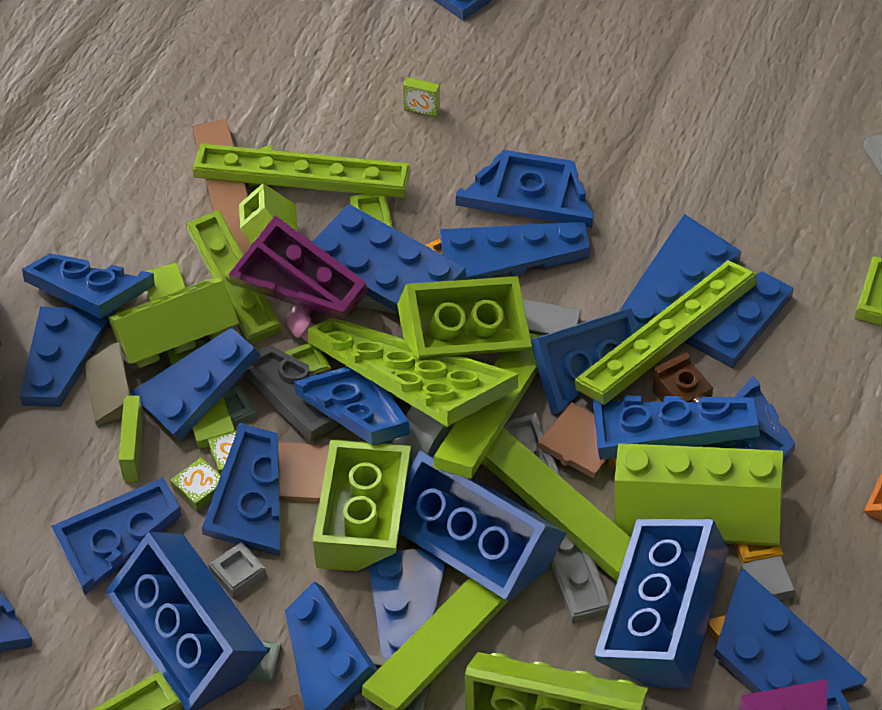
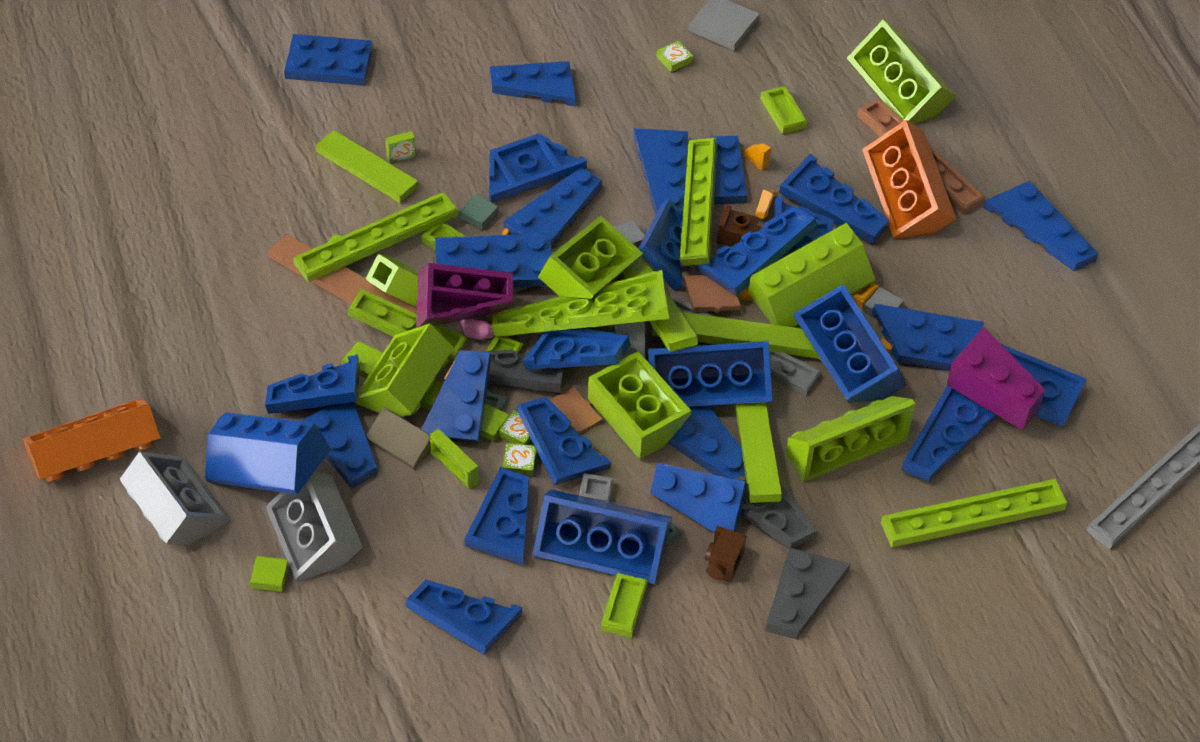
camera: 45 degrees left, 0 degrees up
(375, 99) = (367, 166): none -> lime tile
(433, 207) = (478, 212): none -> sand green tile
(638, 109) = (539, 79): none -> blue wing
(761, 372) = (767, 198): none -> light orange tile
(795, 324) = (758, 155): none -> light orange tile
(815, 164) = (674, 56): none -> tile
(829, 418) = (826, 196): none -> blue wing

